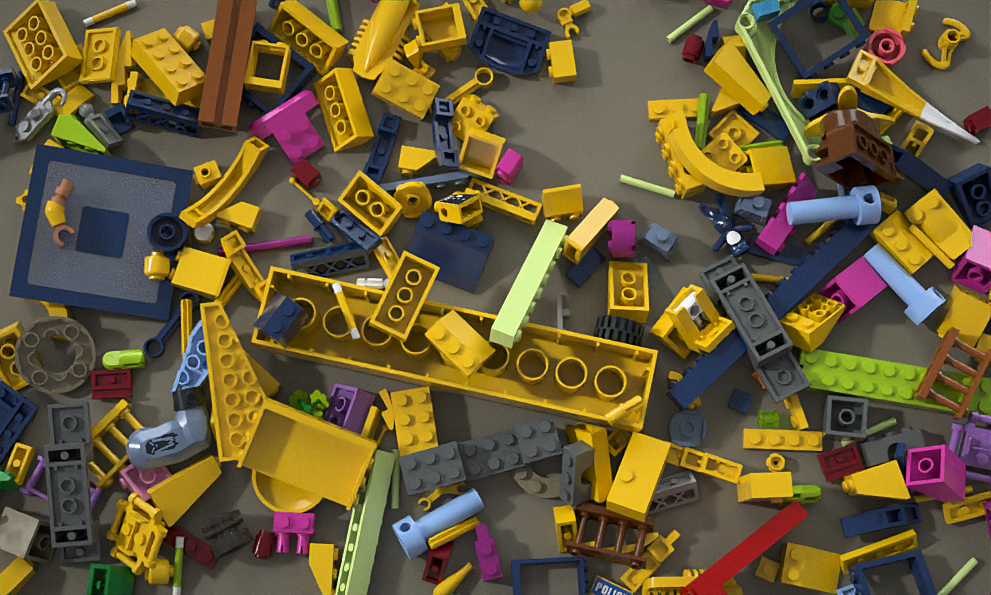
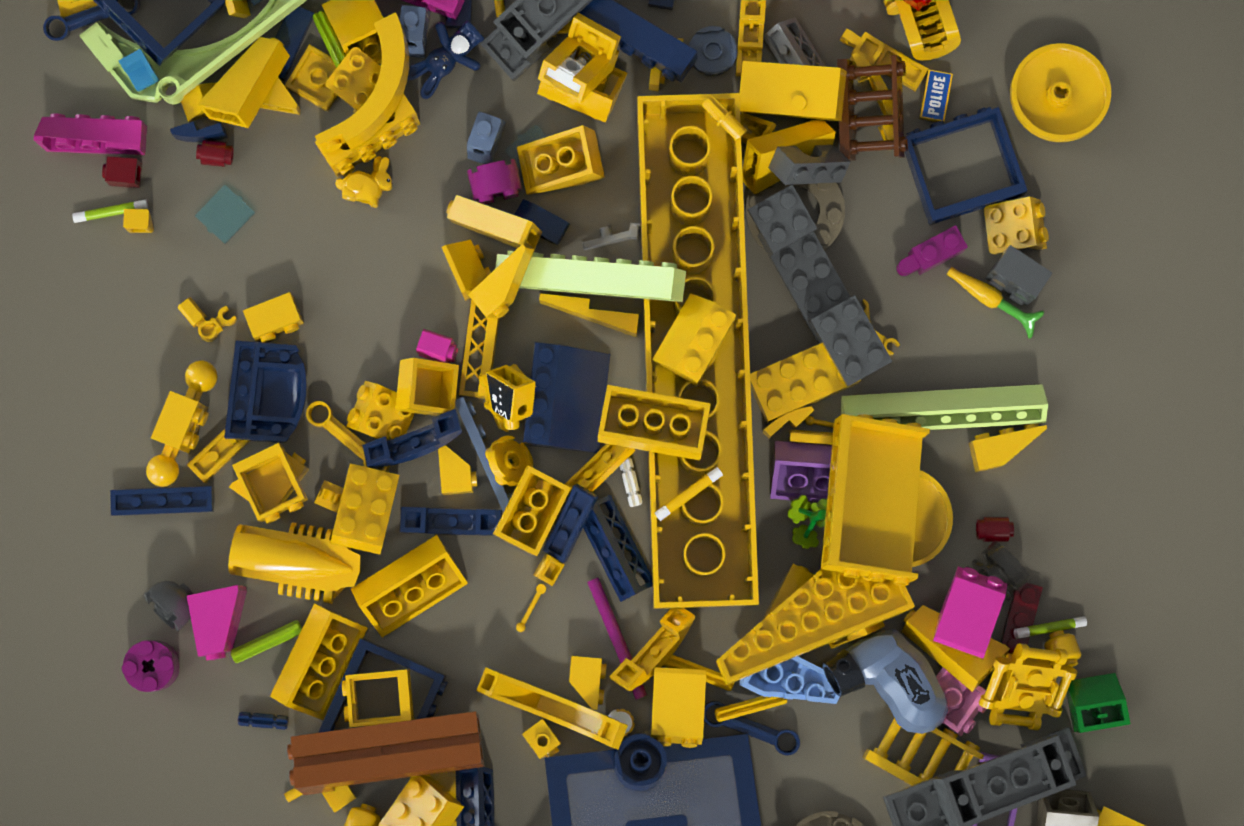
camera: 105 degrees left, 5 degrees up
(111, 384) = (847, 782): dark red plate -> none
(124, 359) = (813, 775): lime arm -> none
(157, 266) = (686, 763): yellow head -> none
(200, 499) = (970, 611): none -> dark pink slope
(281, 320) = (724, 572): dark blue slope -> none
(291, 127) = (450, 647): dark pink piece -> none
(300, 523) = (961, 501): dark pink brick -> none
(306, 174) = (509, 609): dark red brick -> none
(319, 225) = (573, 573): dark blue axle -> none
(395, 481) = (873, 389): yellowish green piece -> none
(413, 53) = (310, 513): yellow slope -> none
(414, 534) = (933, 344): light blue piece -> none
(437, 563) = (955, 311): dark red slope -> none
(453, 532) = (918, 299): yellow axle -> none
(497, 300) = (580, 307): none -> yellow slope
(541, 221) = (501, 286): none -> yellow slope
(565, 526) = (873, 167): yellow slope -> none
(619, 330) = (621, 156): black tyre -> none
(643, 147) = (364, 186): none -> yellow animal
(647, 47) = (224, 214): none -> clear light blue piece
(647, 186) = (414, 170): yellowish green bar -> none
(665, 108) = (302, 157): yellow plate -> none
(690, 23) = (179, 166): yellowish green piece -> none
(702, 120) = (311, 119): lime axle -> none

